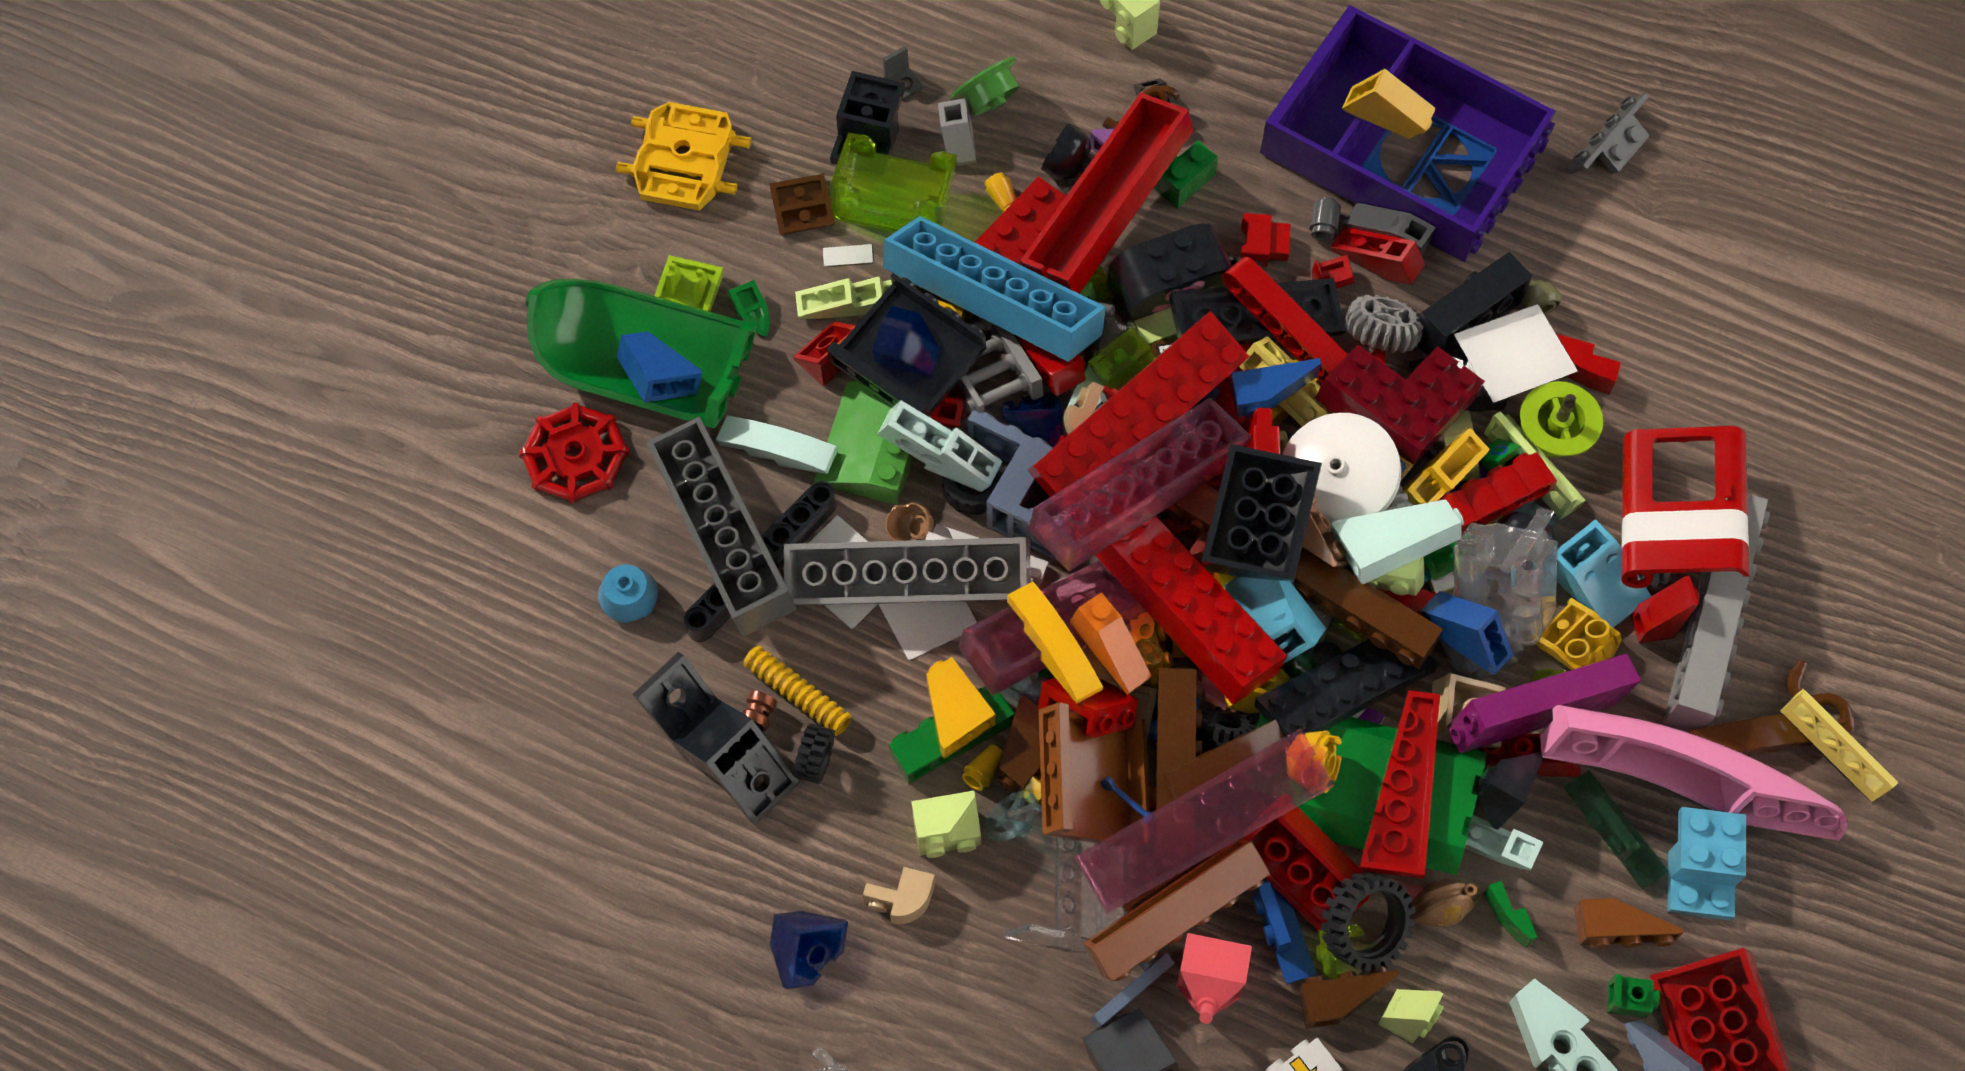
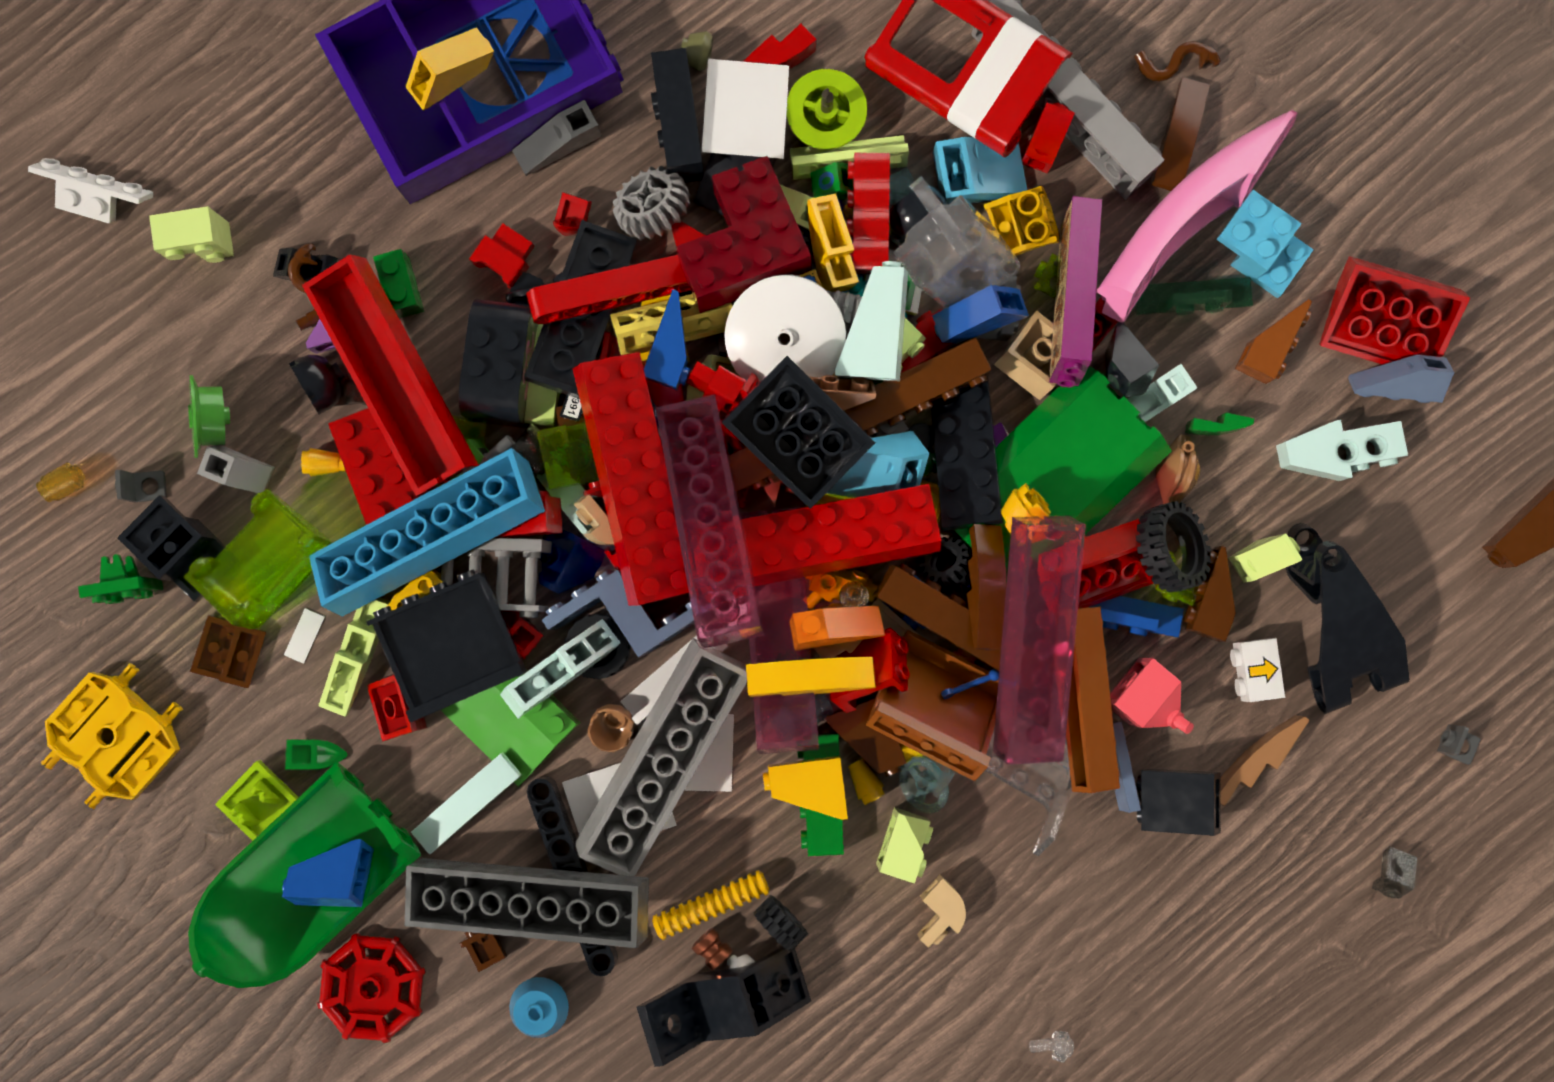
camera: 60 degrees left, 20 degrees up
(658, 520) = (483, 949): none -> reddish brown bracket
(804, 945) = (938, 1014): clear blue slope -> none
(814, 96) = (119, 582): none -> green plate
(870, 19) = (61, 482): none -> clear yellow brick
(906, 342) = (440, 644): clear blue slope -> none
(1325, 219) = (513, 188): dark grey brick -> none
(1382, 254) = (575, 162): red slope -> none
(1402, 812) = (1105, 464): red wing -> none
(1622, 1002) = (1325, 378): green brick -> none
(1838, 746) = (1226, 73): light yellow fence -> none

